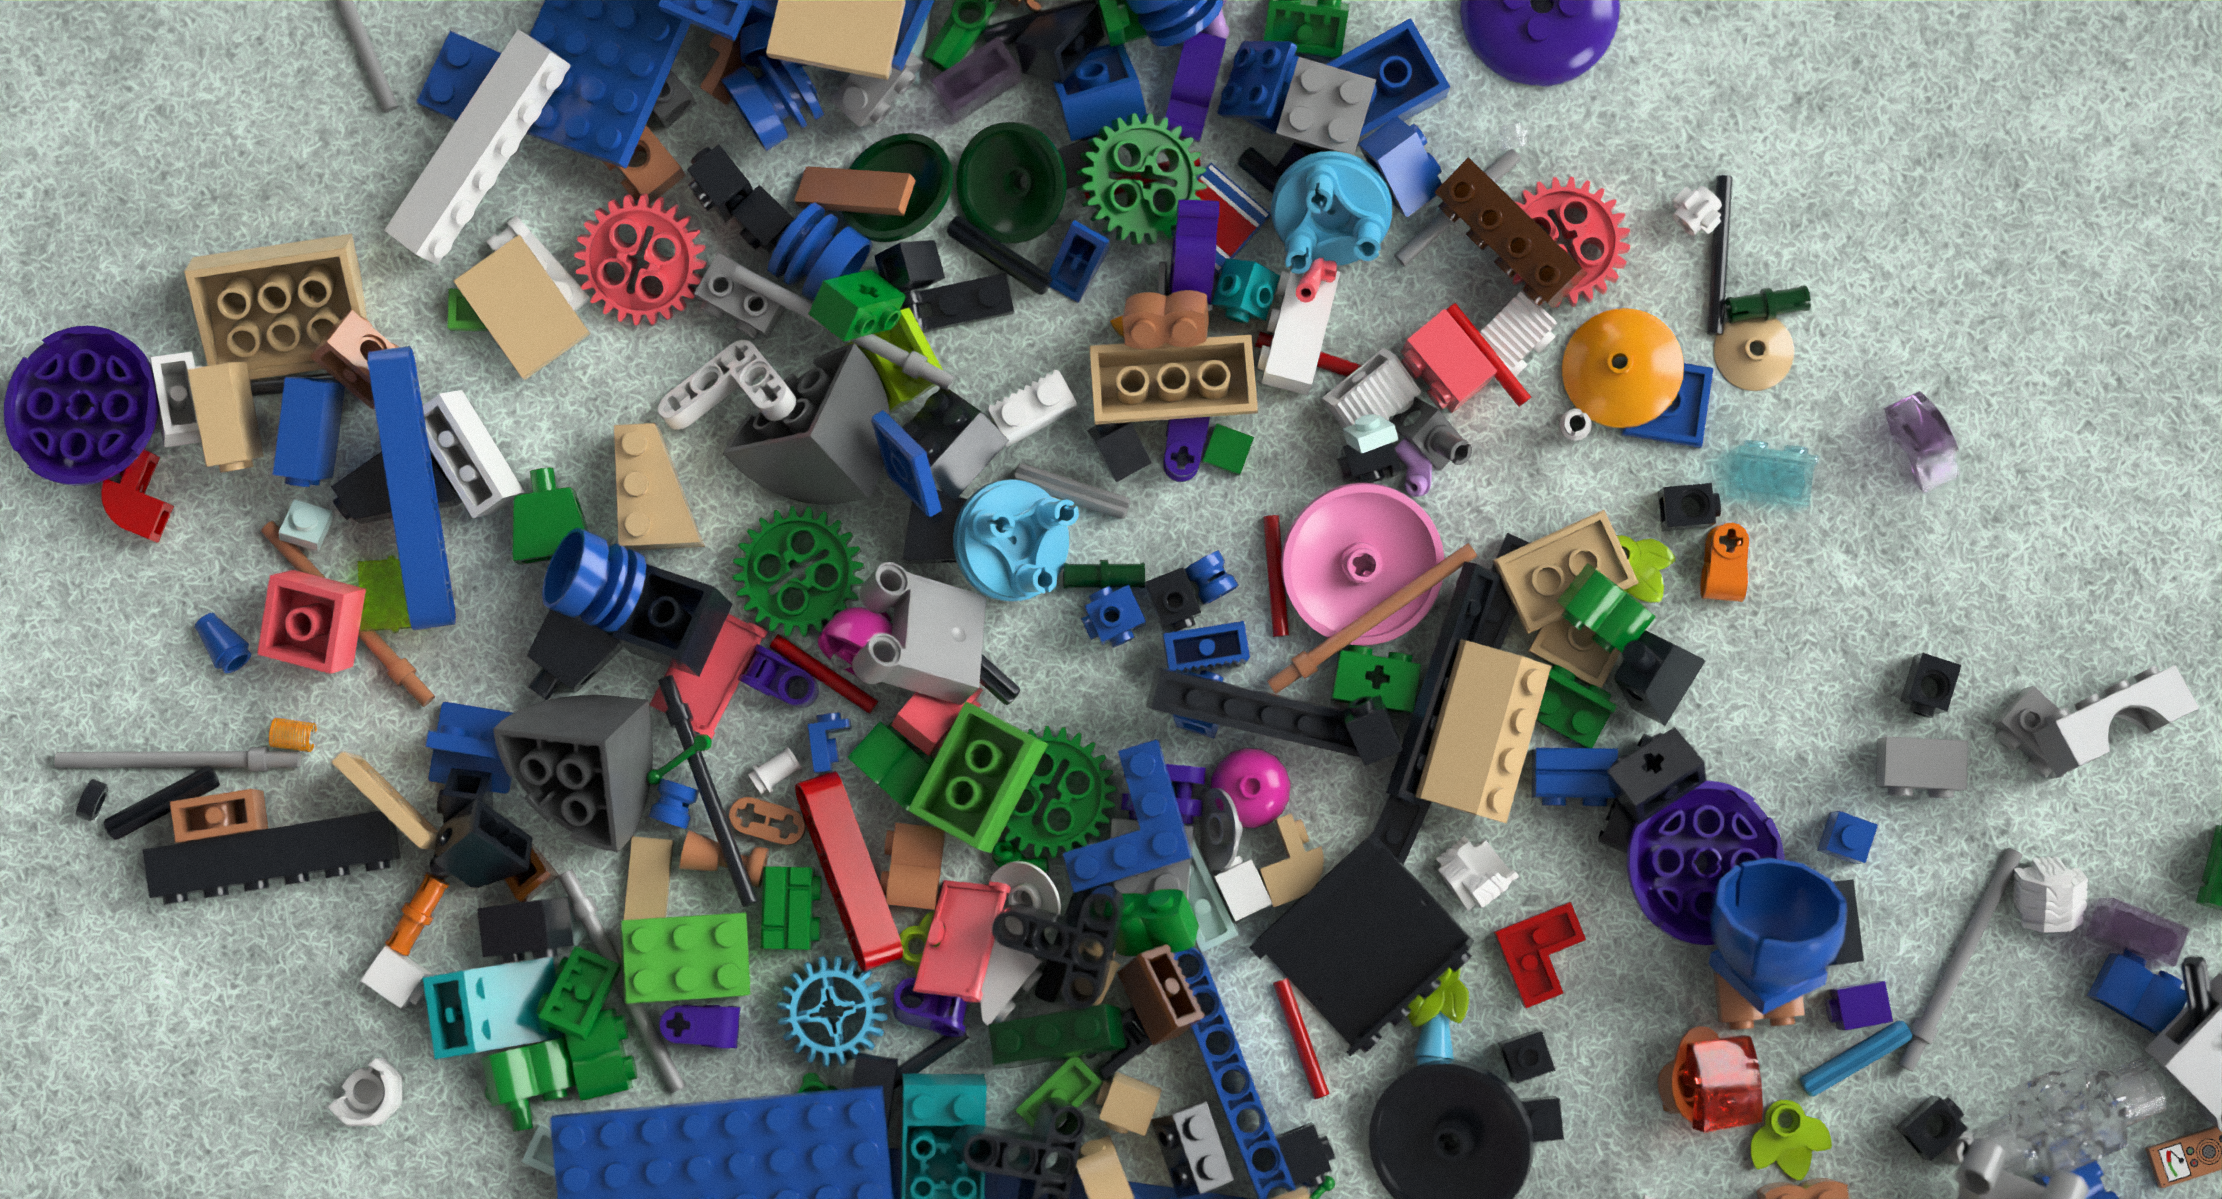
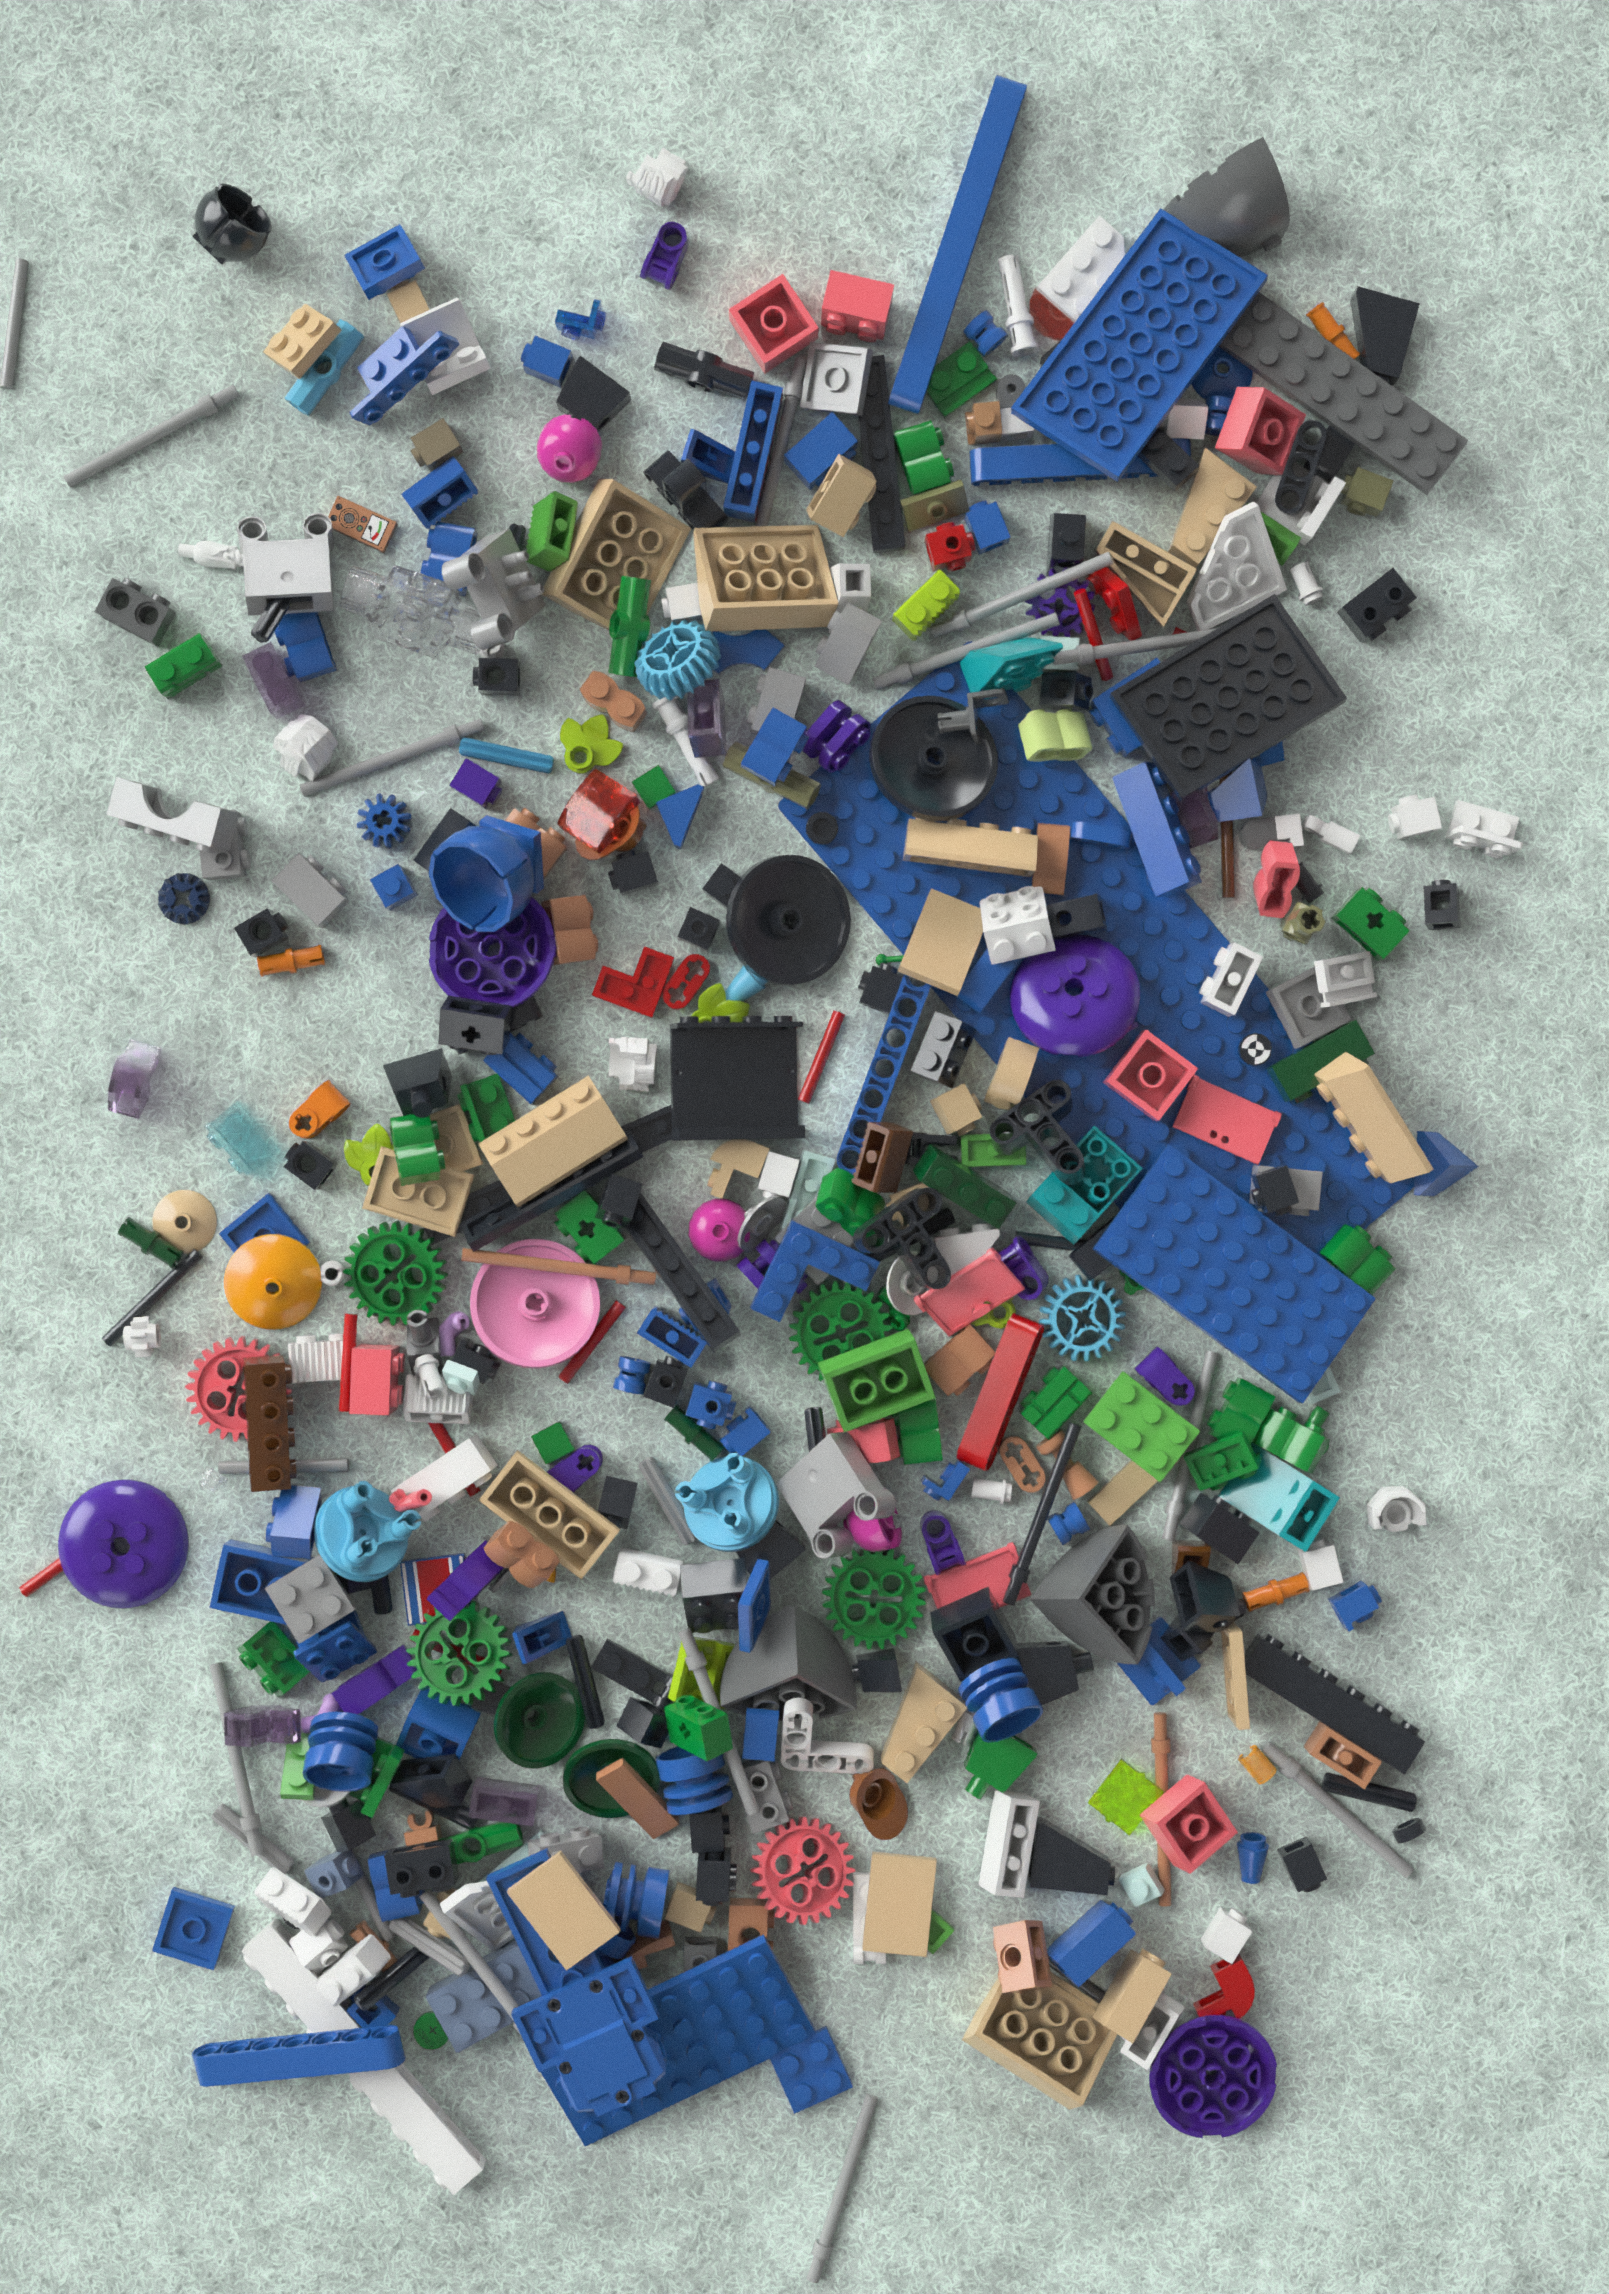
camera: 140 degrees left, 5 degrees up
(166, 677) = (1302, 1865): none -> black brick
(183, 550) = (1227, 1934): none -> white brick
(330, 970) = (1355, 1604): none -> blue brick
(411, 488) = (1060, 1852): blue beam -> none
(477, 147) = (841, 2026): white brick -> none
(605, 528) = (965, 1725): none -> white pin
(622, 384) = (879, 1803): none -> dark orange piece
(701, 743) = (1021, 1546): green hinge -> none
(714, 128) = (686, 1911): none -> tan brick
(733, 504) = (877, 1671): none -> black slope
(792, 349) = (760, 1734): none -> blue slope
(823, 674) = (912, 1522): red bar -> none
(1056, 618) = (745, 1432): none -> blue brick
(1245, 290) = (457, 1529): teal brick -> none
(1407, 413) = (427, 1369): none -> white pin
(1503, 993) = (692, 986): none -> red beam
(1552, 481) = (376, 1251): none -> green gear
(1637, 1054) = (632, 872): none -> black brick
(1645, 1152) = (679, 812): none -> blue slope
(1646, 948) = (572, 929): none -> nougat brick
(1690, 1153) = (653, 786): none -> green tile
(1879, 682) = (290, 960): none -> orange pin
(1925, 899) = (387, 831): none -> blue gear
(2017, 663) = (198, 898): none -> dark blue gear

